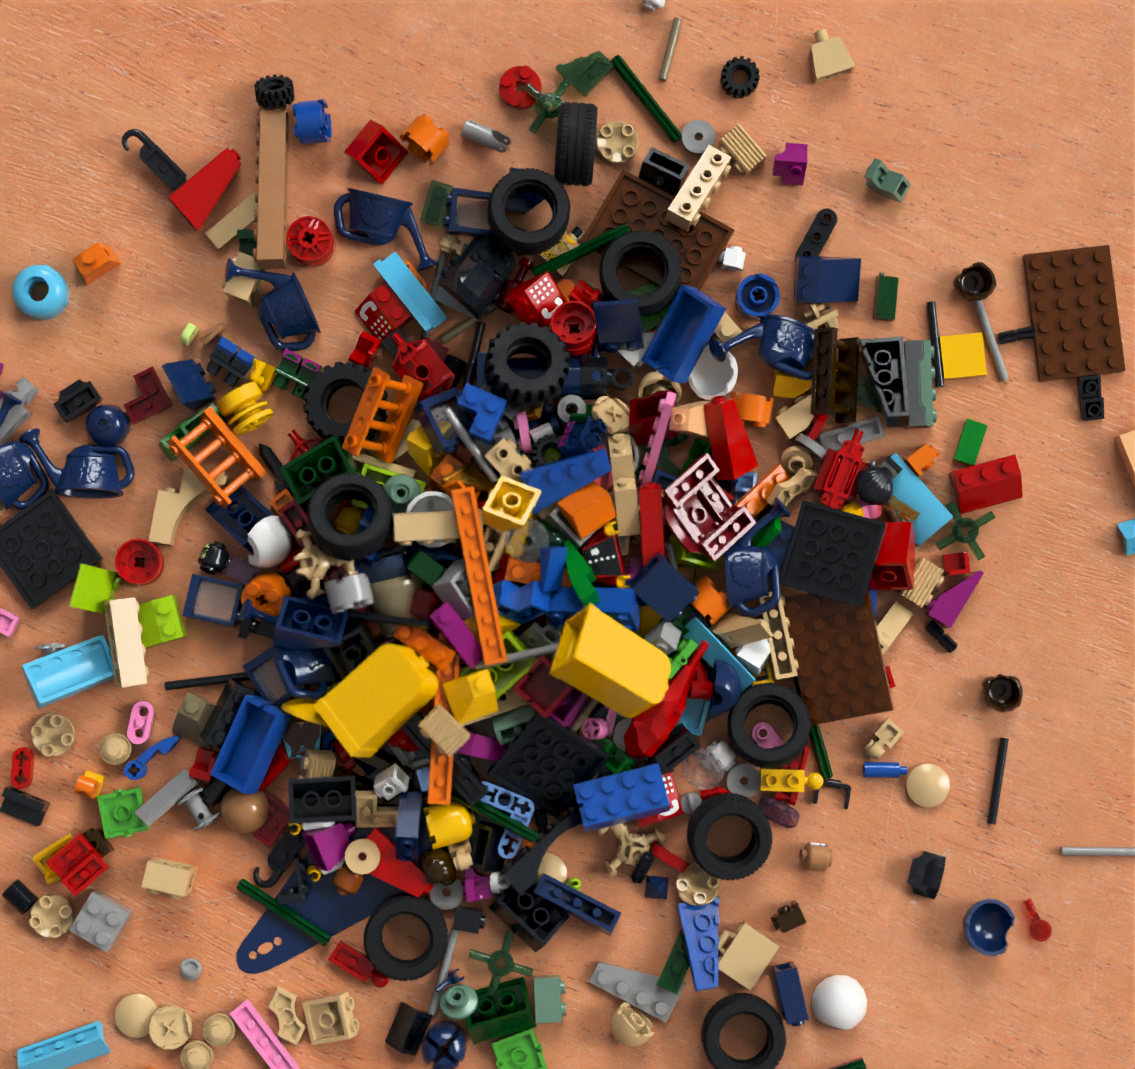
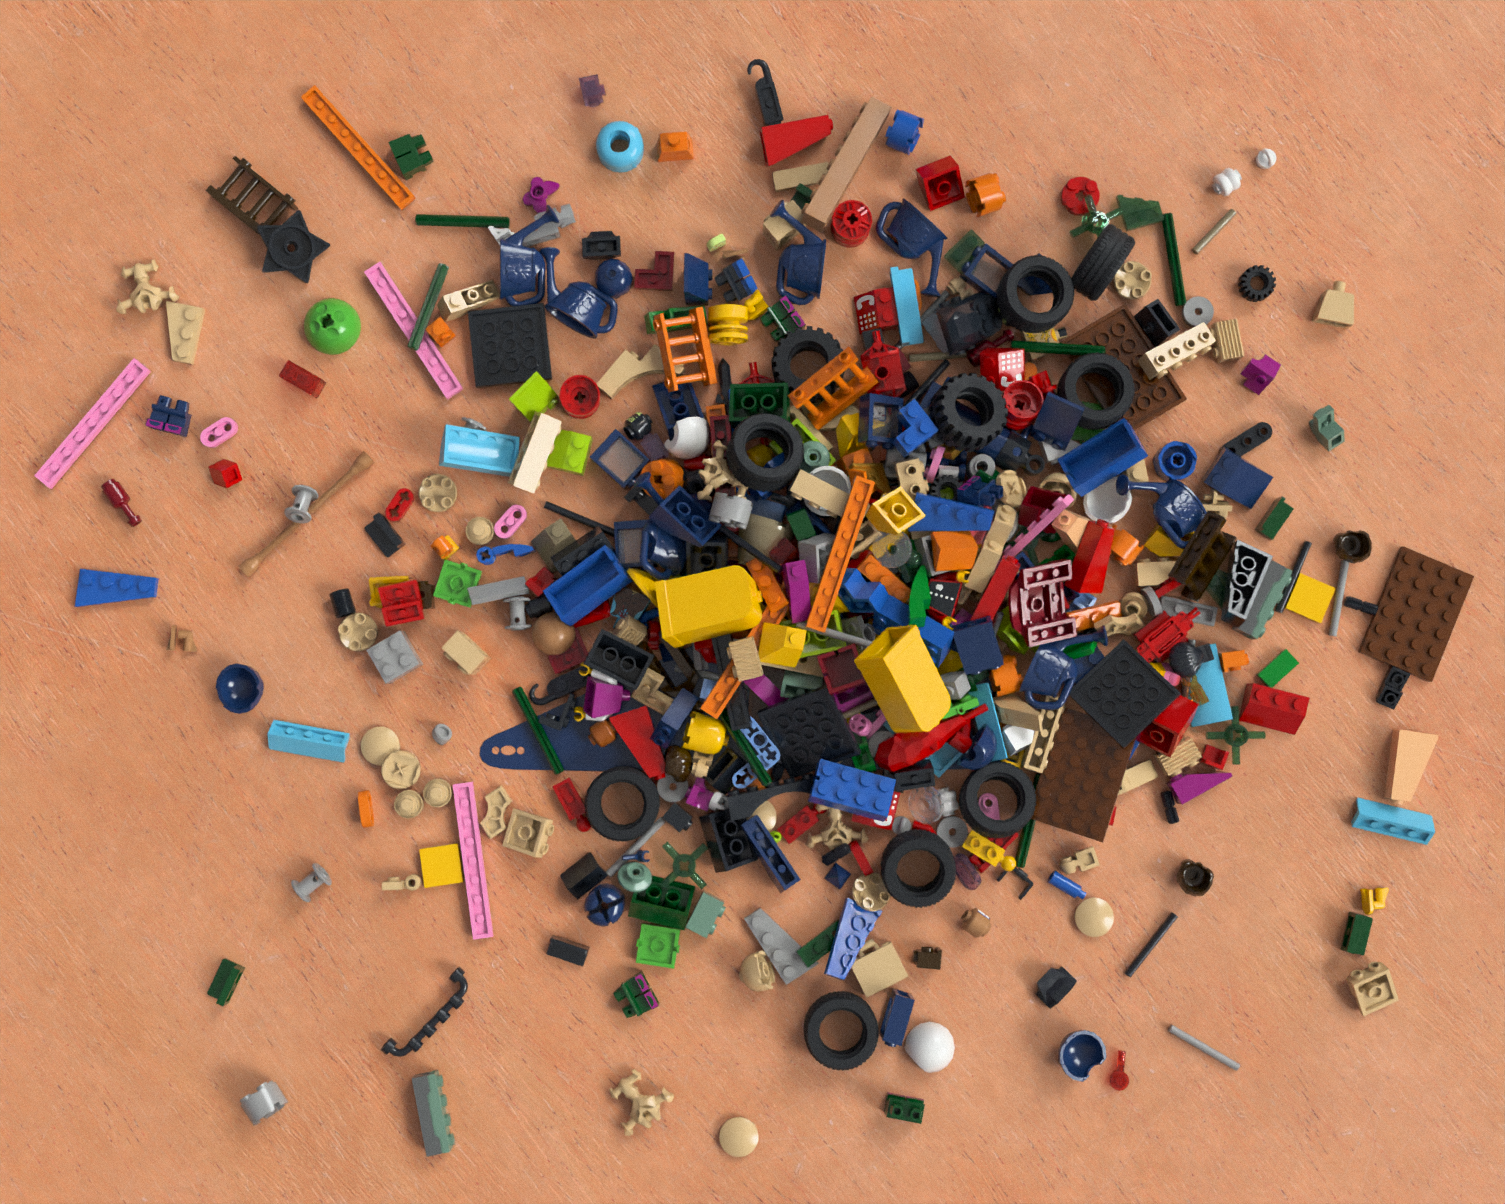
camera: 25 degrees right, 0 degrees up
(274, 91) = (888, 92): black tyre -> none
(355, 863) = (633, 721): tan piece -> none
(365, 350) = (846, 331): red panel -> none
(391, 782) = (679, 676): white brick -> none
(470, 444) = (889, 449): light grey bar -> none
(485, 136) = (1031, 218): light grey piece -> none
(552, 567) = (900, 580): blue slope -> none
(590, 857) = (799, 823): none -> red plate
(732, 259) = (1171, 421): white plate -> none

